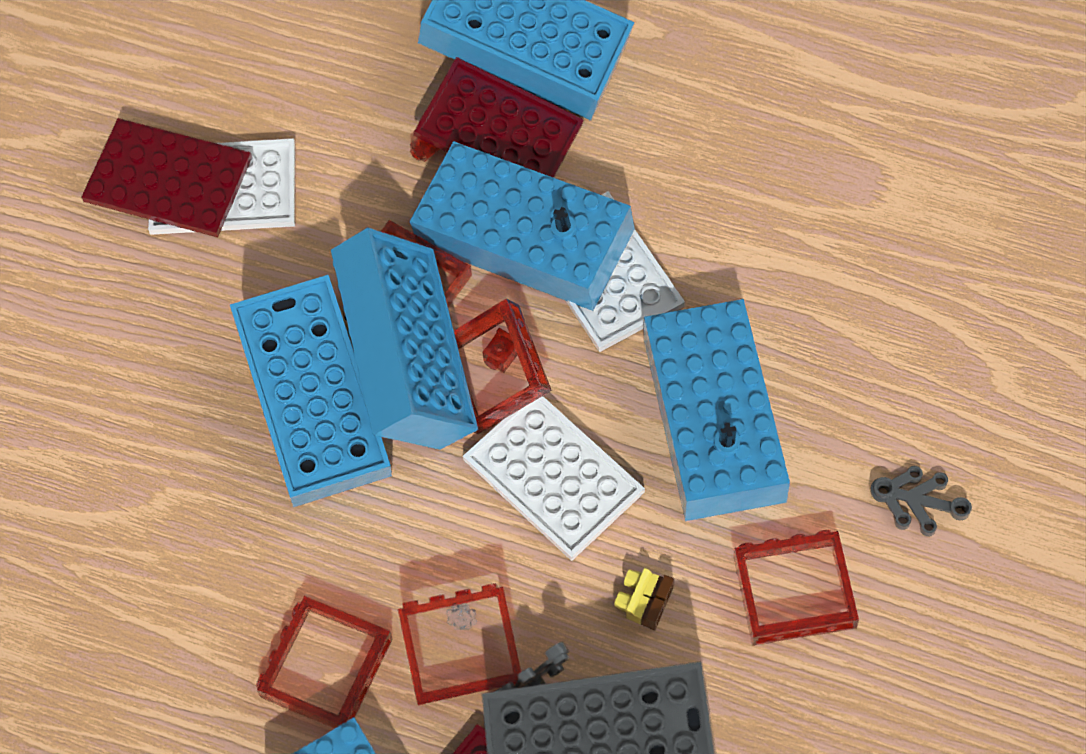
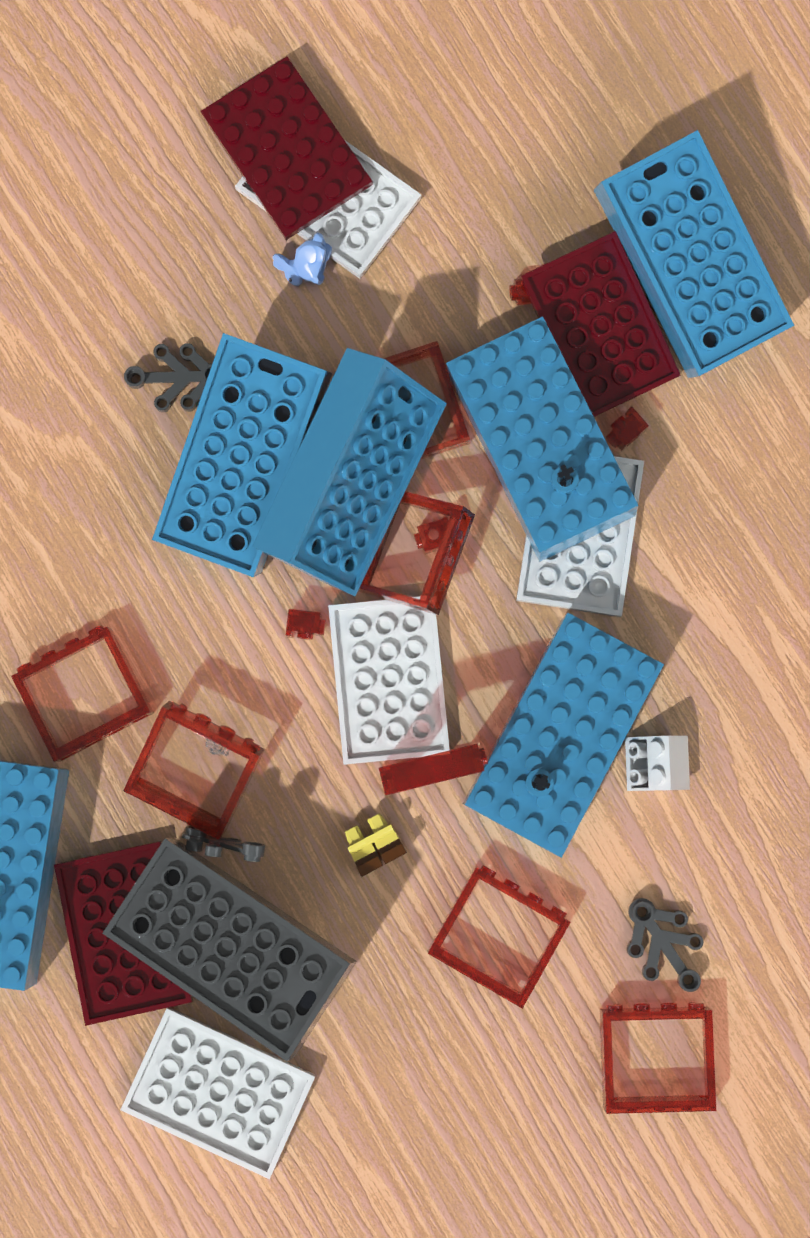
camera: 35 degrees right, 20 degrees up
(211, 387) = (180, 377): none -> dark grey plant
(247, 240) = (308, 262): none -> light blue animal
(455, 483) = (305, 624): none -> clear red brick
(578, 174) = (626, 429): none -> clear red brick
(640, 495) = (433, 769): none -> clear red window
(800, 379) = (657, 763): none -> white slope
(956, 613) = (657, 1104): none -> clear red window

